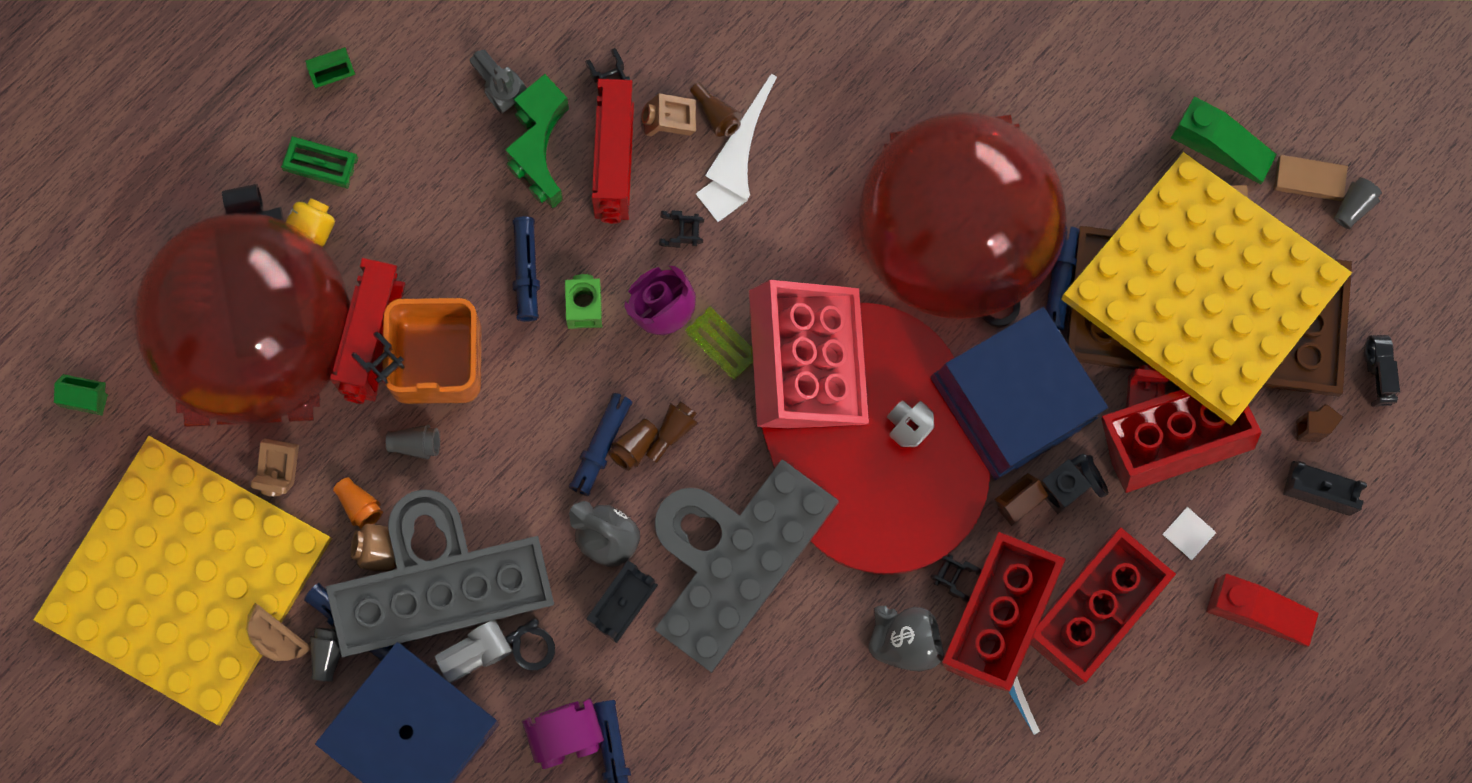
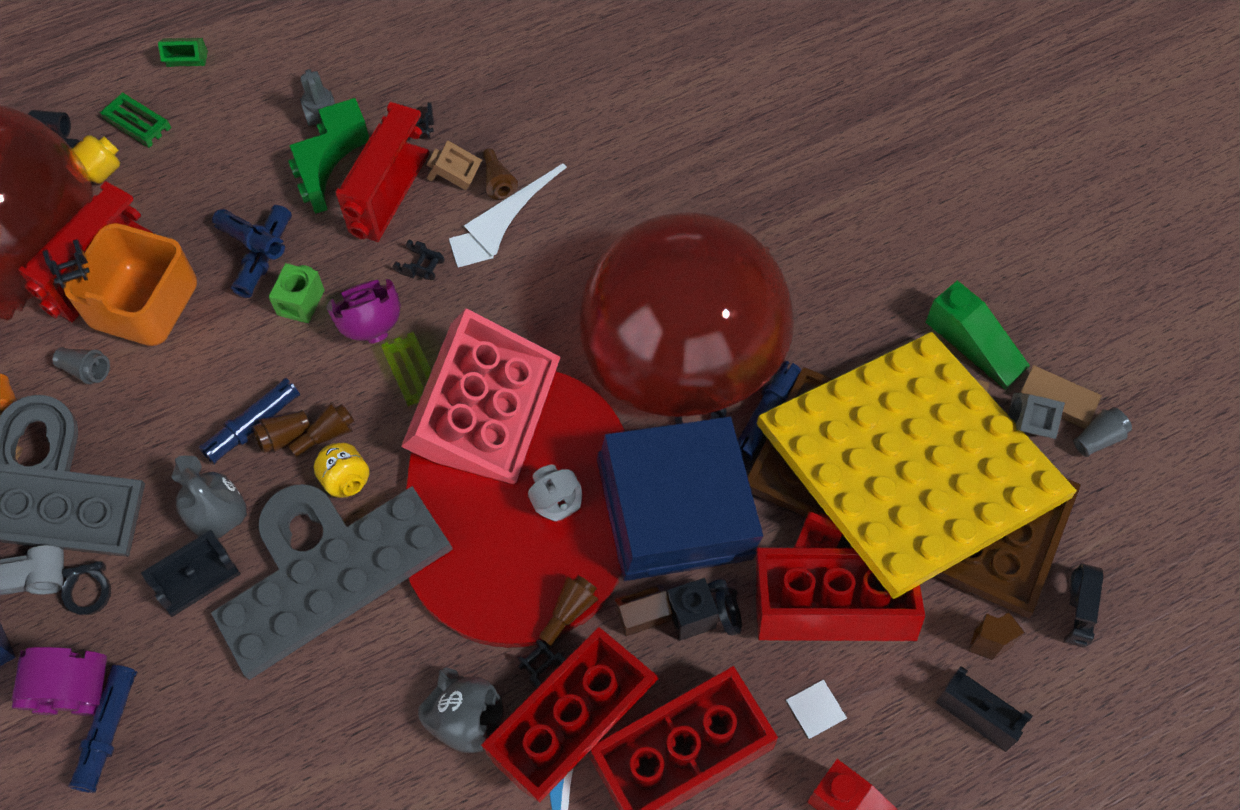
camera: 25 degrees right, 15 degrees down
(522, 262) = (253, 236): none -> dark blue pin
(708, 463) = (341, 470): none -> yellow head
(963, 514) = (572, 602): none -> reddish brown cone
(1298, 208) = (1036, 414): none -> dark grey brick

